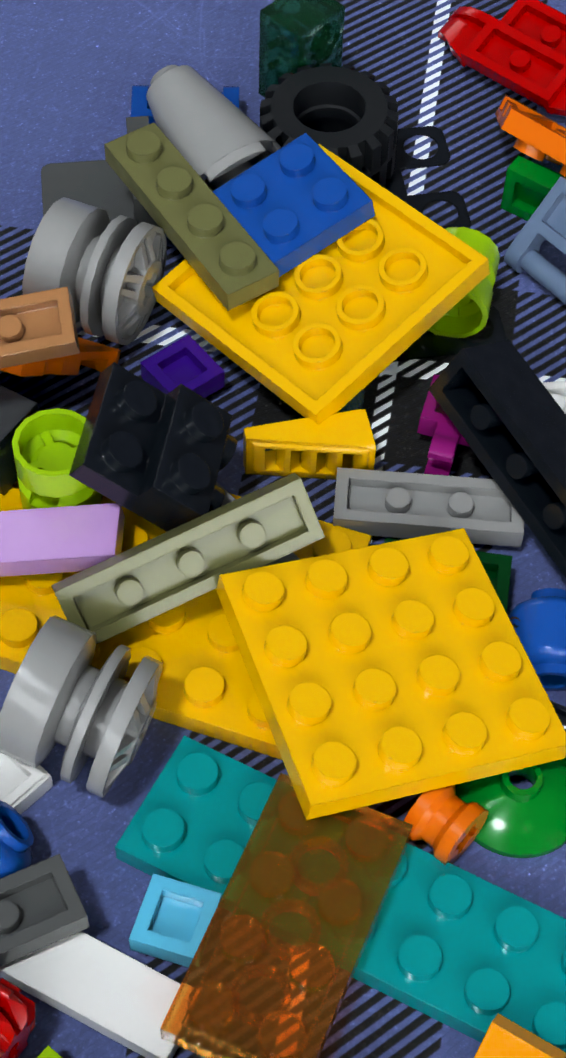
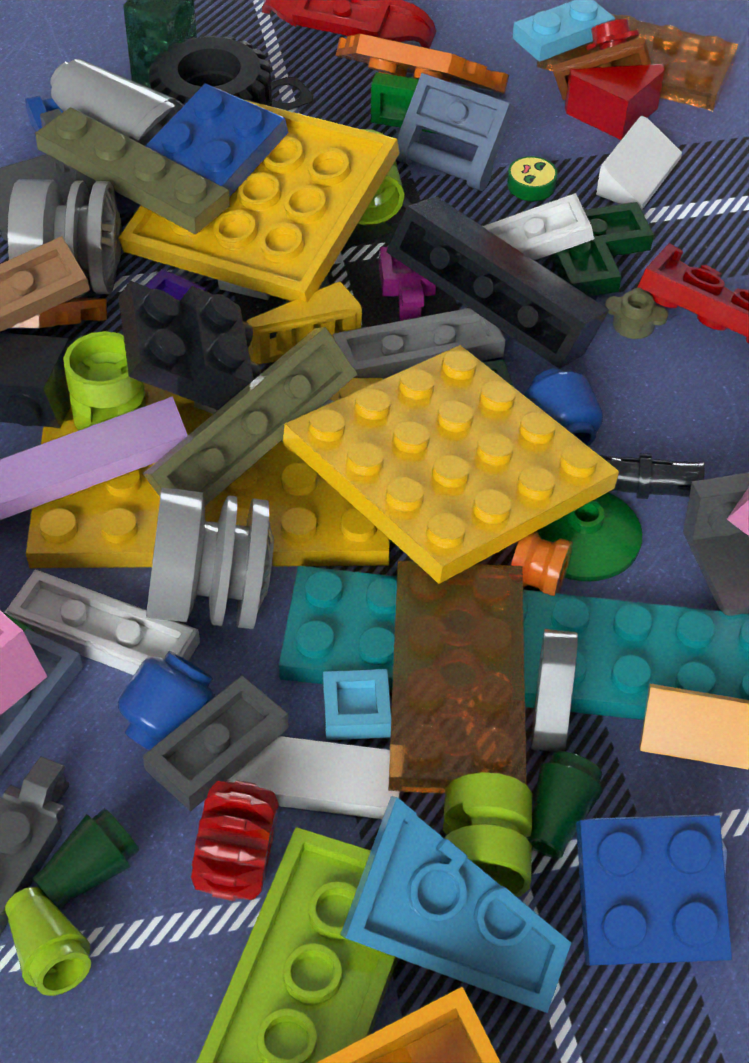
camera: 20 degrees left, 5 degrees down
(384, 986) = (554, 690): none -> beam

